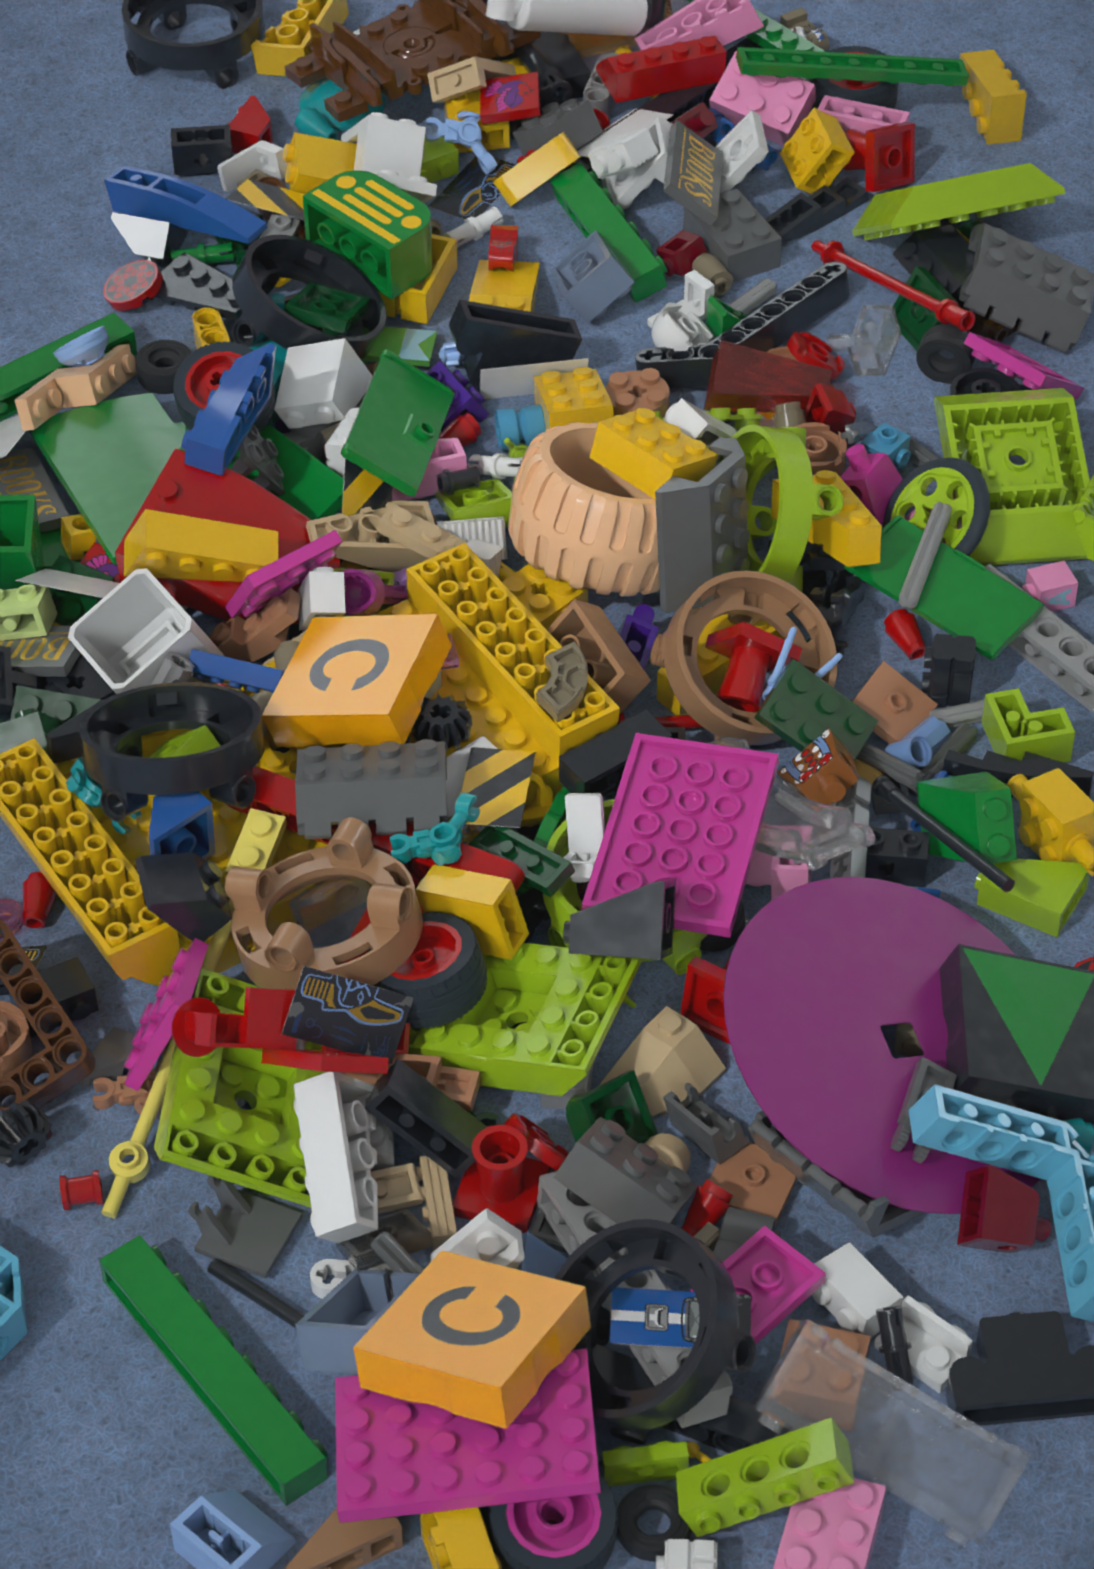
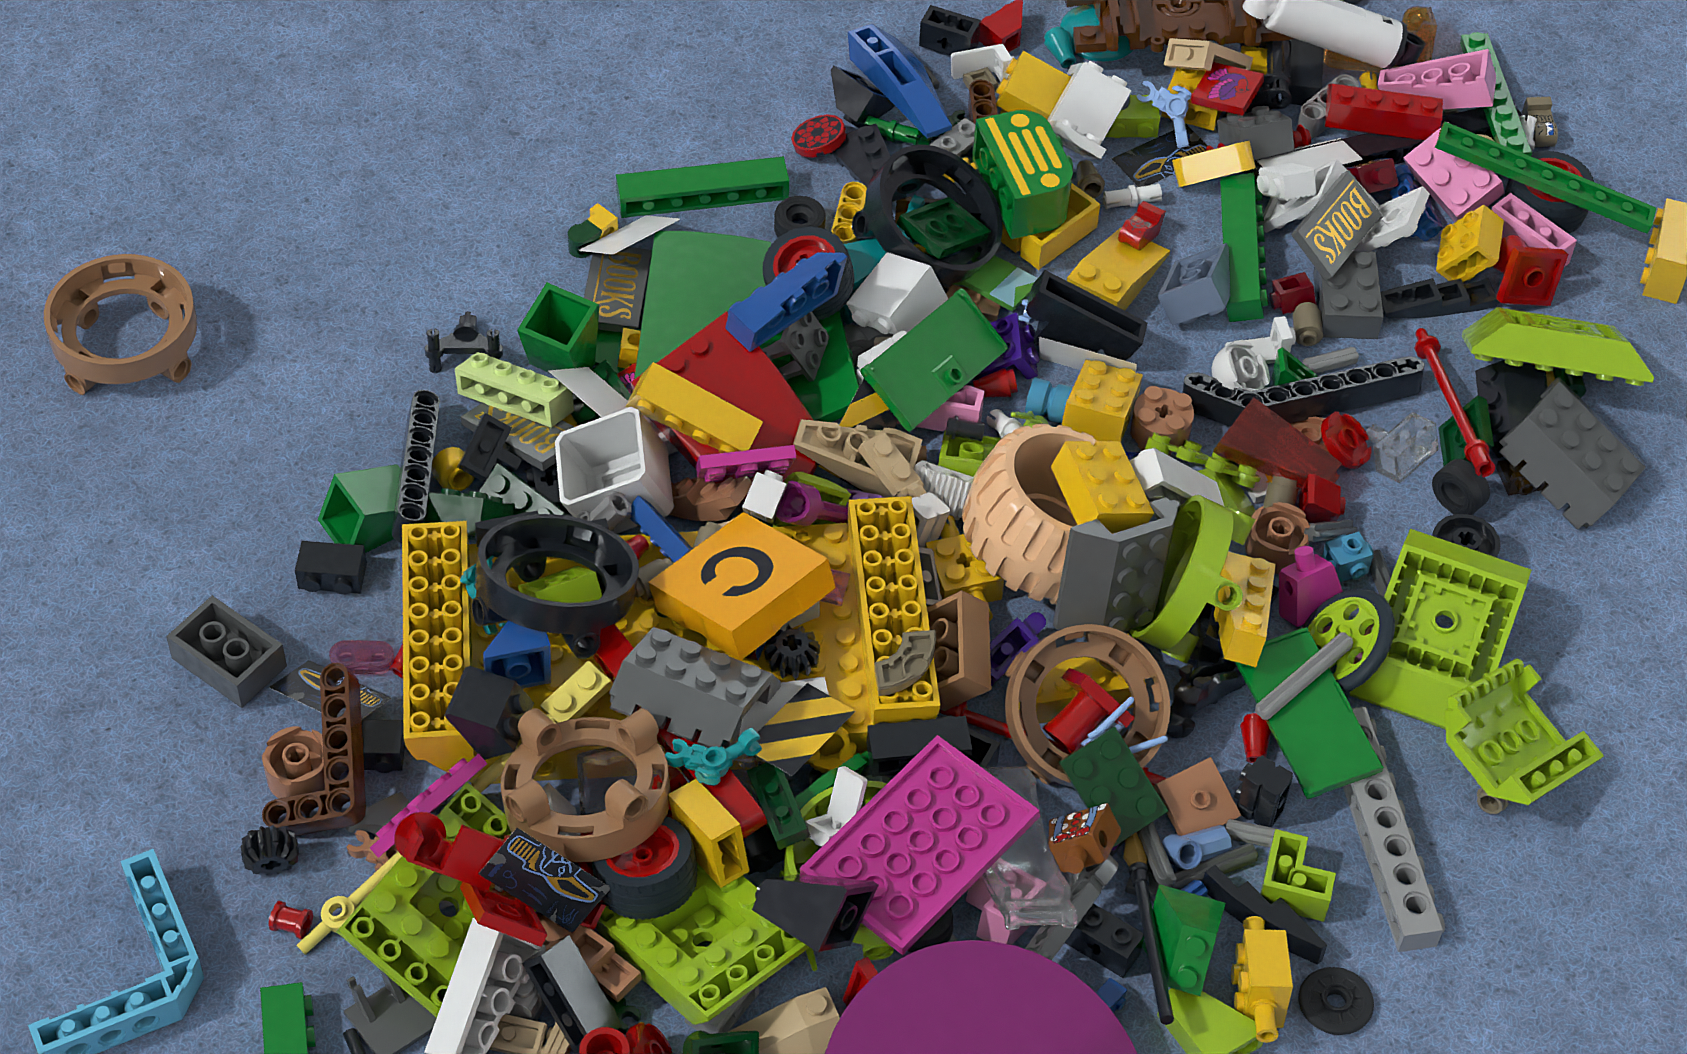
camera: 25 degrees right, 5 degrees up
(75, 387) = (709, 213): light nougat bracket -> none
(83, 349) = (732, 182): light blue piece -> none
(269, 198) = (969, 99): sticker -> none
(1019, 365) = (1519, 530): dark pink plate -> none
(1052, 585) = (1409, 751): bright pink brick -> none

